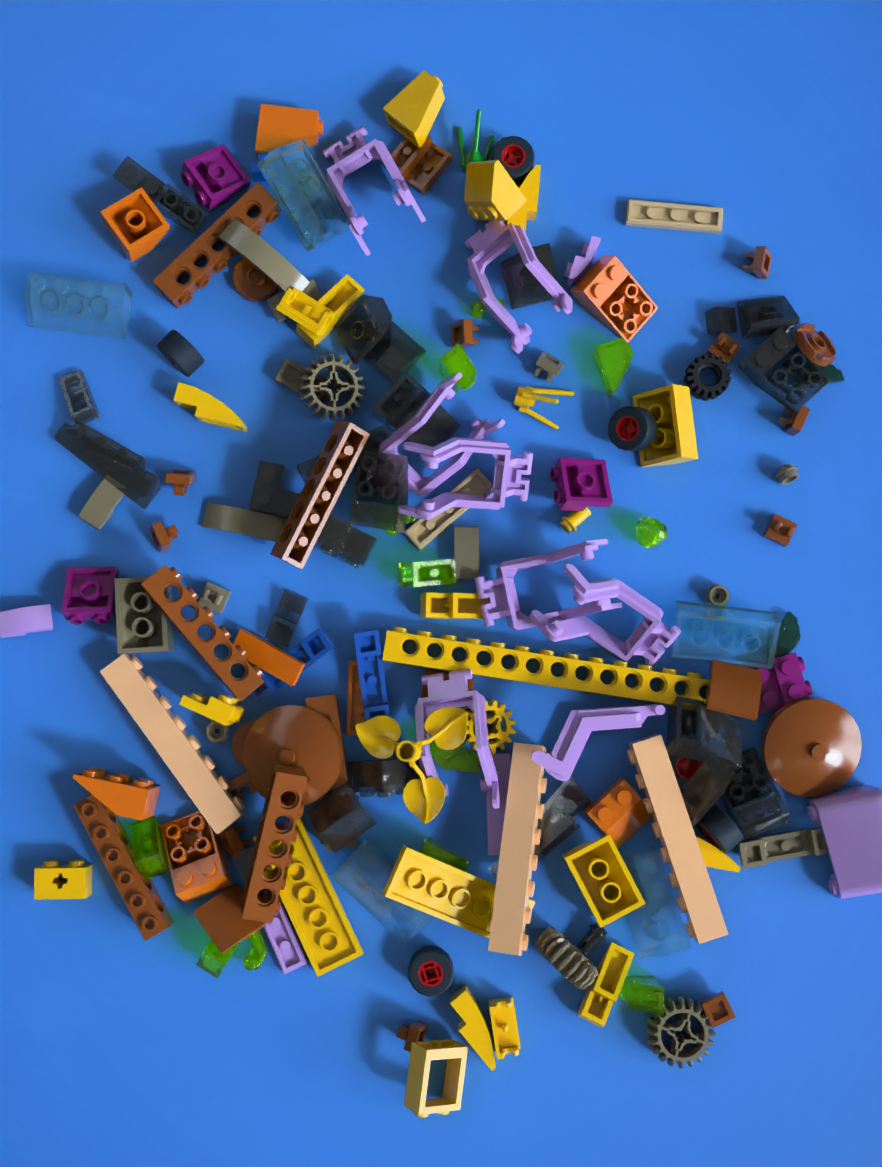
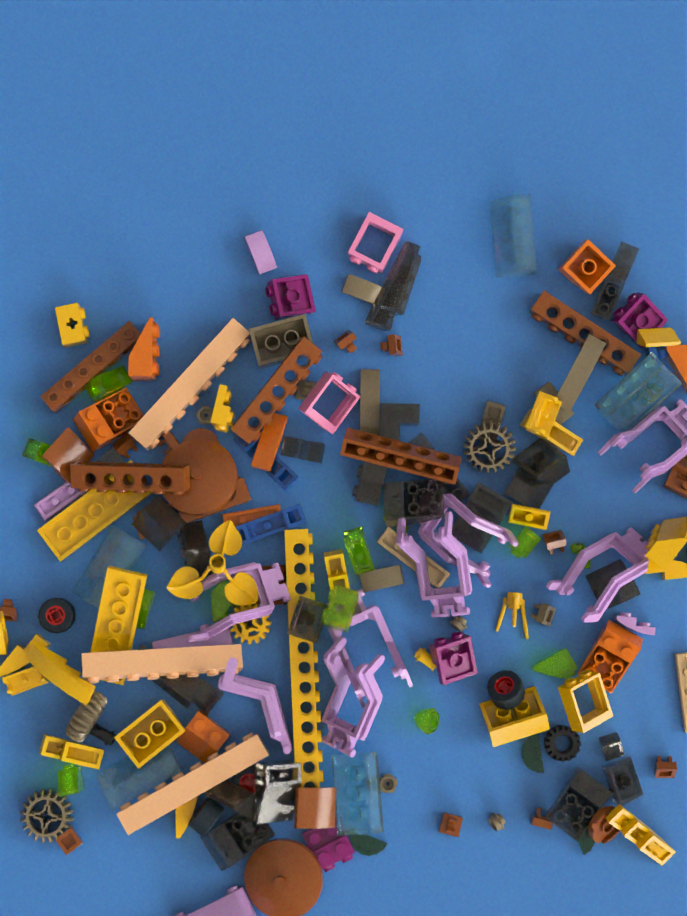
camera: 85 degrees right, 0 degrees up
(27, 461) = (384, 226): none -> bright pink window
(83, 412) = (431, 259): clear smoke slope -> none
(180, 353) = (491, 324): black wheel -> none
(207, 407) = (453, 354): yellow slope -> none
(241, 159) = (657, 337): none -> yellow slope
(247, 557) = (342, 410): none -> bright pink window
(252, 282) = (560, 365): dark orange tile -> none
(257, 952) = (45, 481): clear neon green arm -> none
(427, 358) = (529, 516): none -> yellow slope
(500, 652) = (307, 619): none -> clear smoke slope
(502, 987) = (56, 671): none -> yellow slope
(509, 608) = (348, 599): none -> clear neon green brick
(539, 470) = (458, 623): none -> dark tan plate
(677, 320) = (602, 707): none -> yellow window
(713, 416) = (532, 754): none -> clear green tile
(724, 347) = (588, 752): dark orange tile -> none
(781, 846) = (201, 869): dark tan slope -> none
(834, 306) = (640, 834): none -> yellow slope

